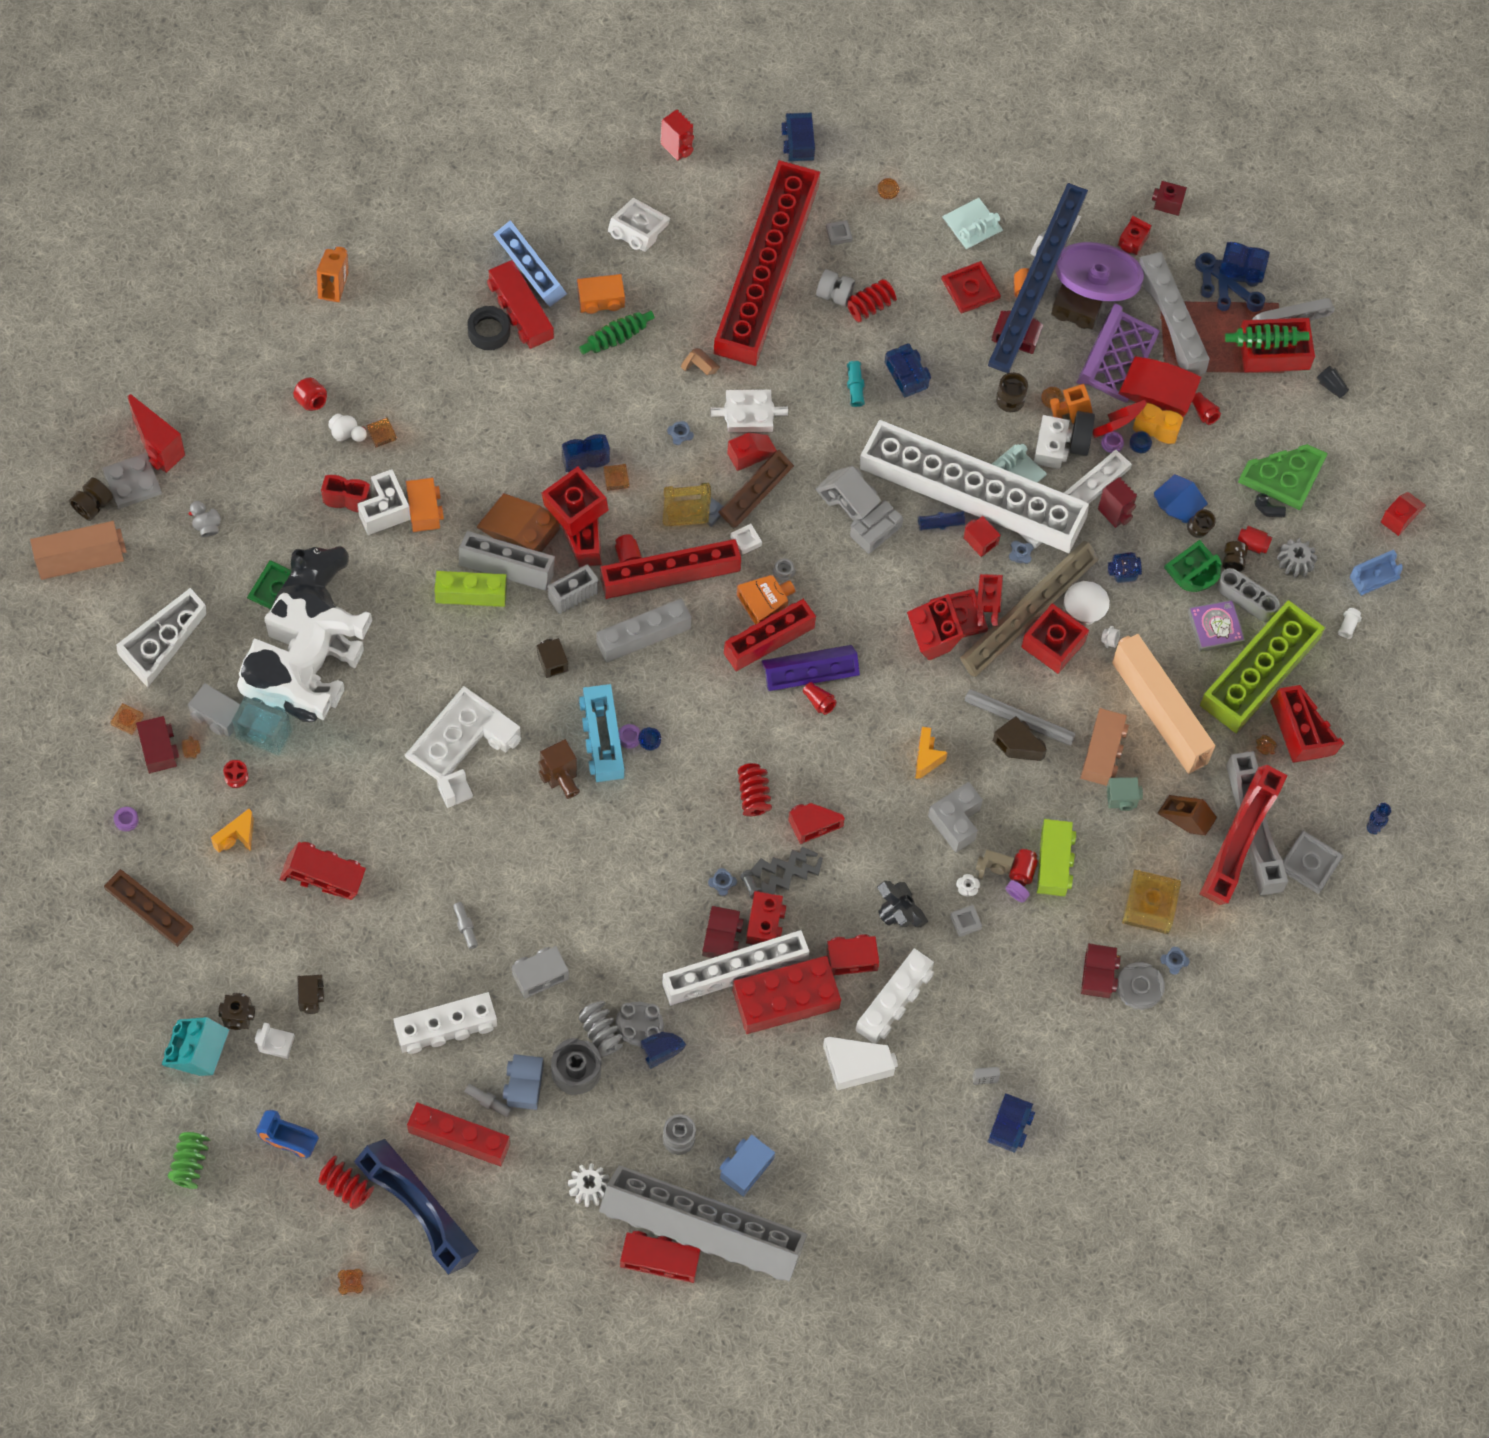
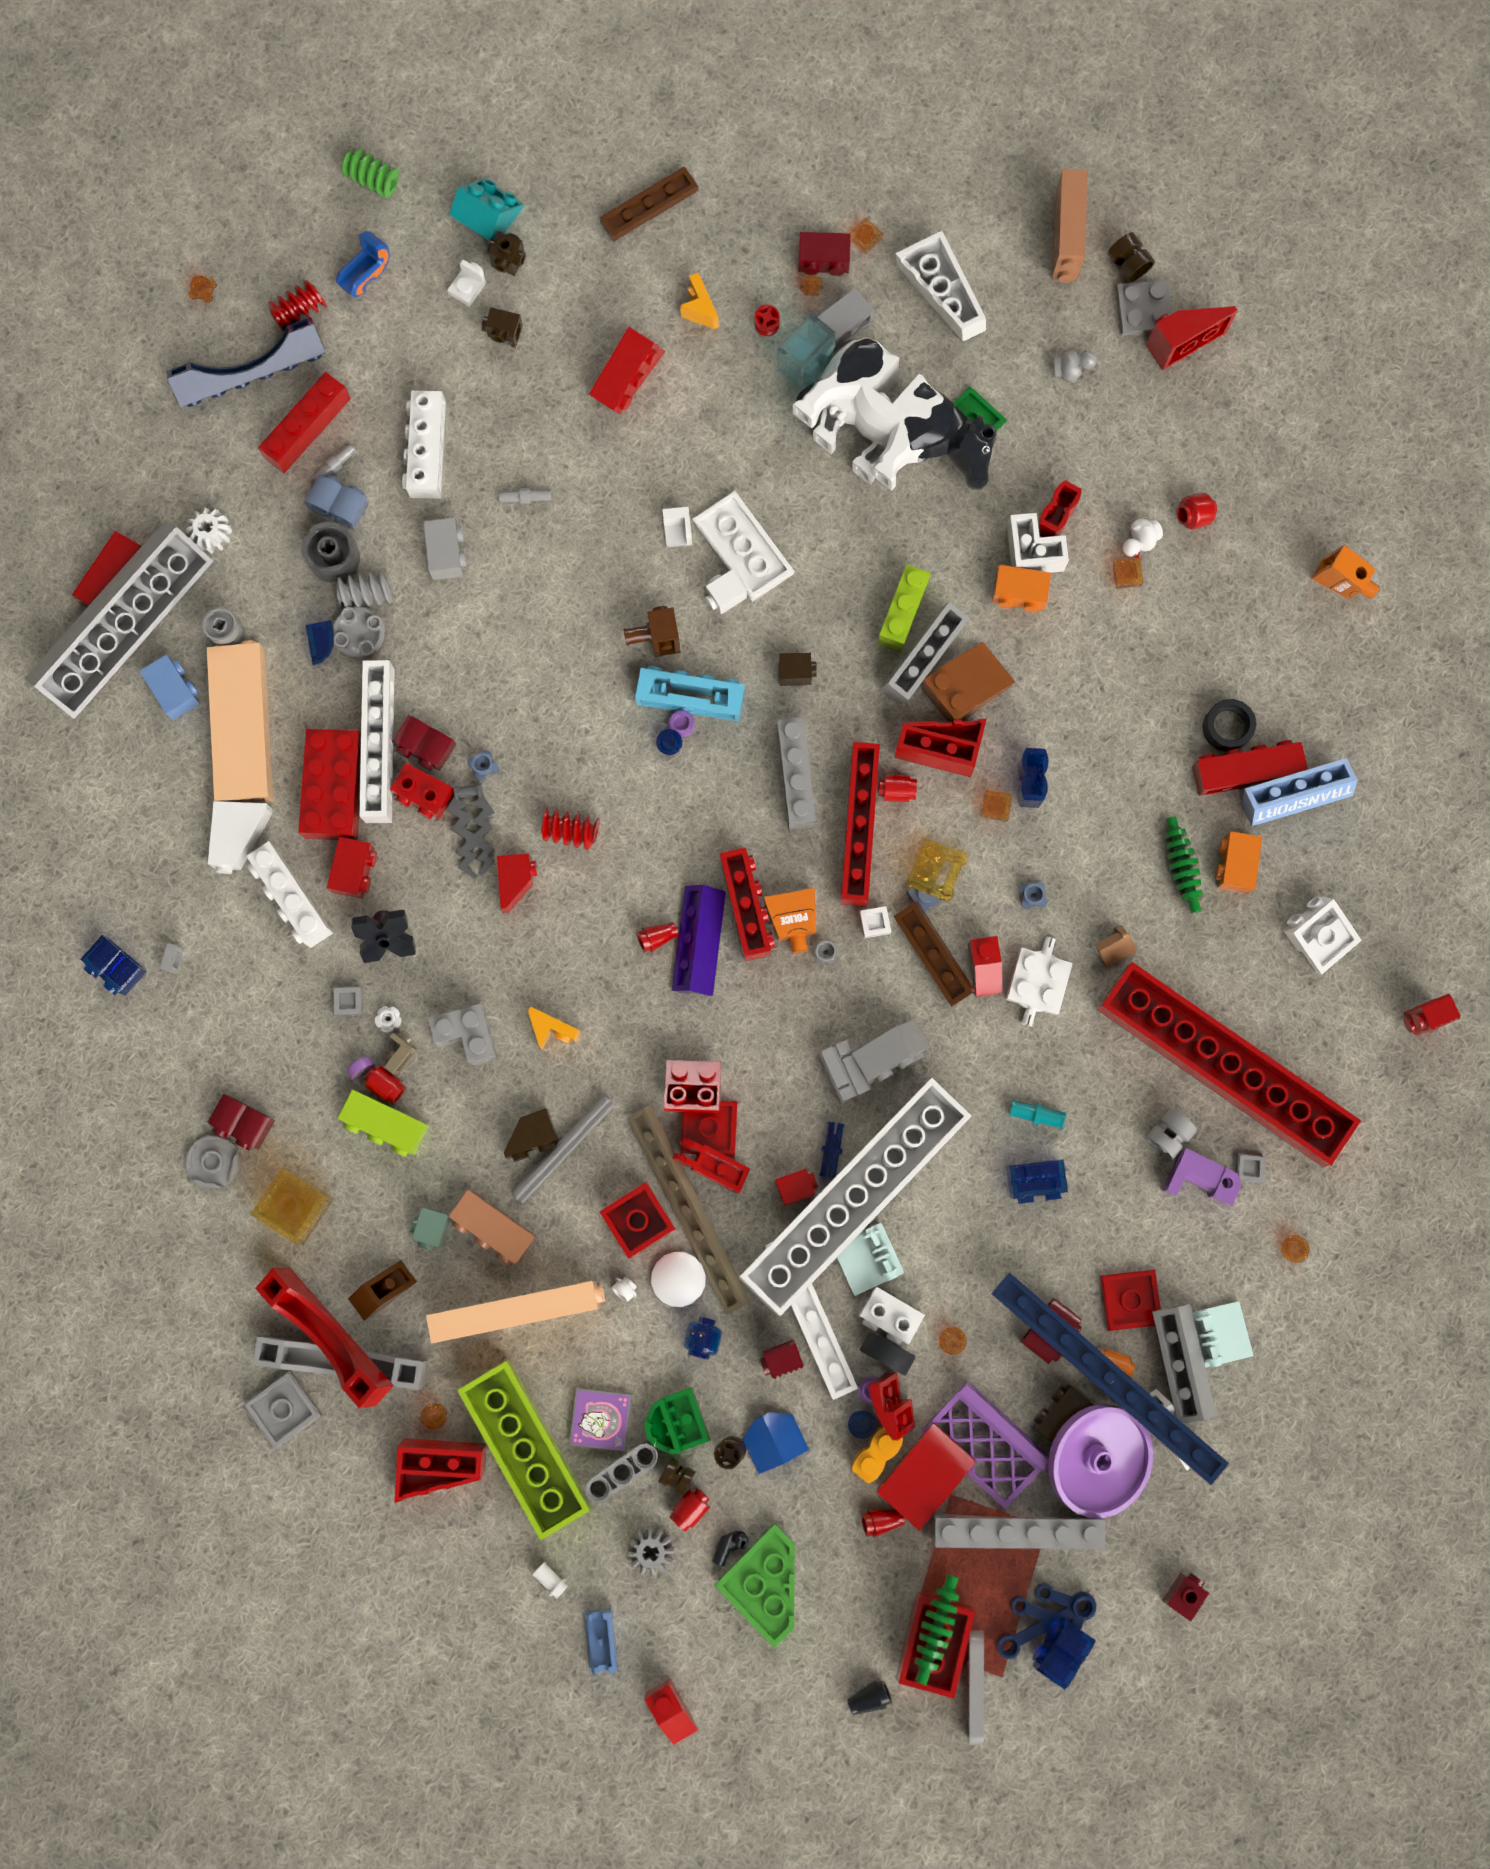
camera: 115 degrees right, 15 degrees up
(126, 819) = (754, 208): medium lavender tile -> none
(573, 589) = (868, 712): light grey brick -> none
(575, 501) = (960, 732): red brick -> none
(759, 1092) = (239, 723): none -> light nougat brick
(799, 136) = (1396, 1165): clear blue brick -> none
(859, 248) = (1204, 1174): none -> medium lavender piece
(870, 299) = (1142, 1169): red piece -> none
(1004, 236) = (1184, 1363): none -> light grey brick
(1012, 392) = (969, 1291): dark brown wheel -> none
(1018, 557) = (771, 1225): sand blue plate -> none
(1075, 400) = (930, 1362): orange brick -> none
(1134, 235) = (1153, 1537): red brick -> none
(1175, 953) = (218, 1210): sand blue plate -> none
(1378, 818) = (288, 1505): clear blue pin -> none

